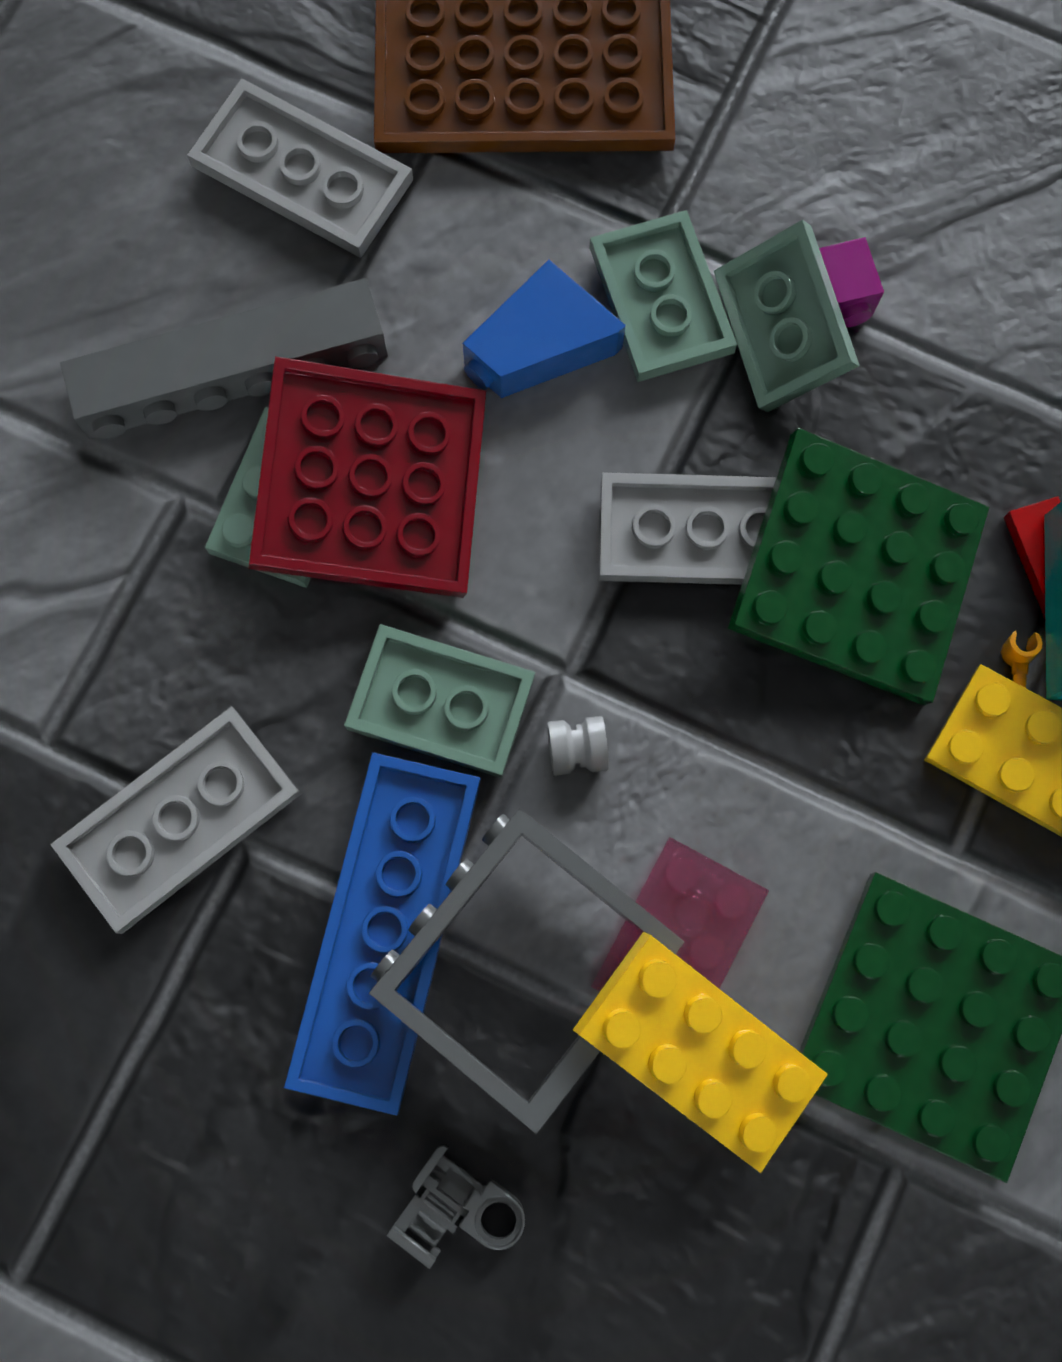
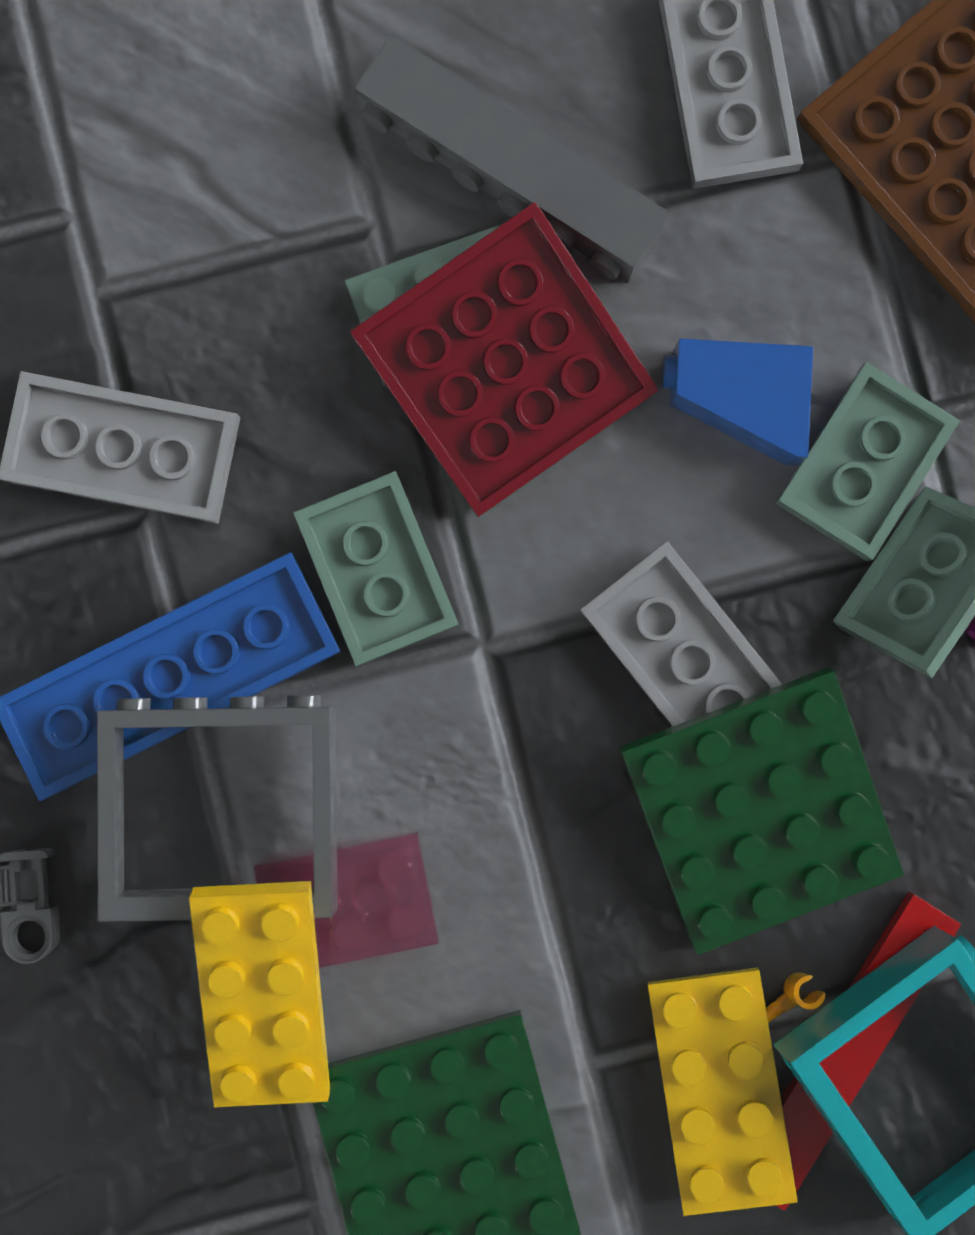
camera: 50 degrees right, 10 degrees up
(583, 746) = (428, 705): light grey wheel -> none

